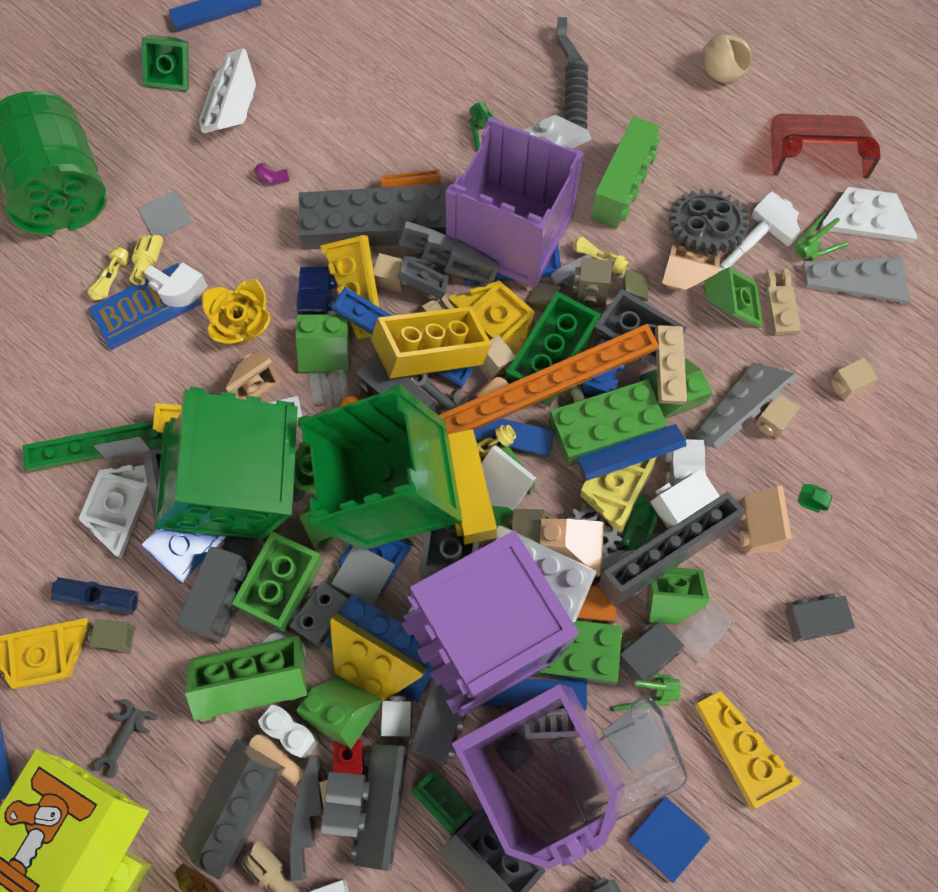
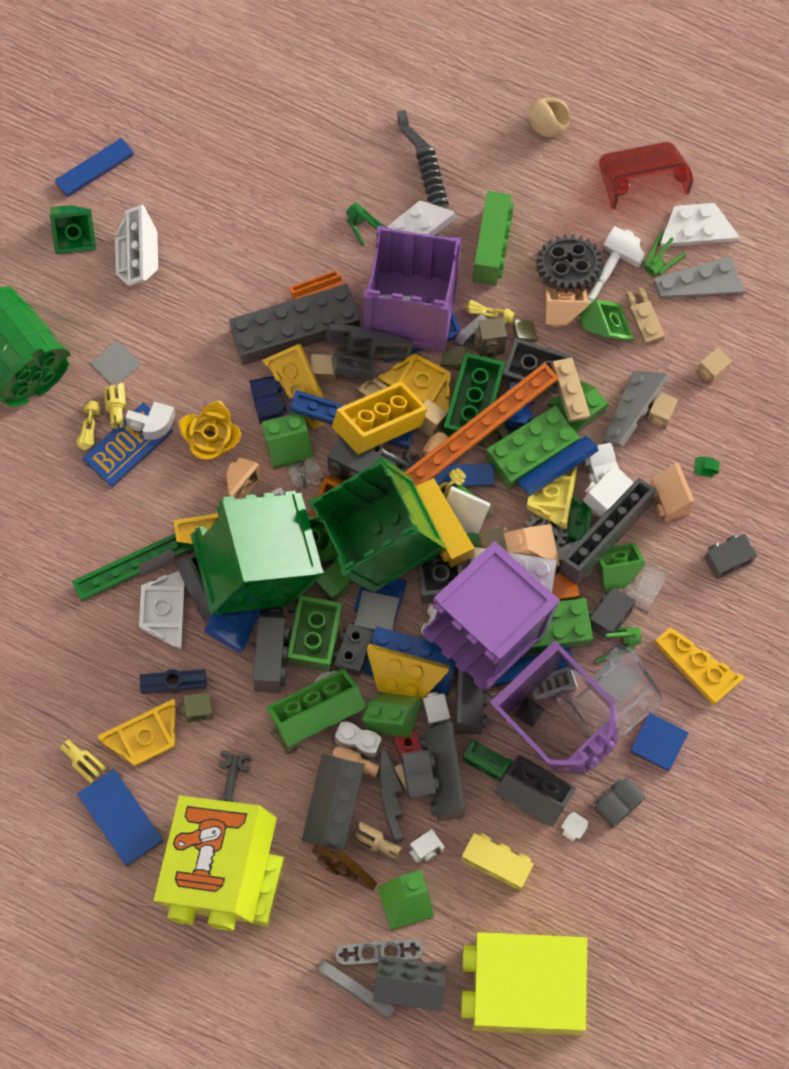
camera: 20 degrees left, 0 degrees up
(270, 177) = (195, 309): magenta arm -> none

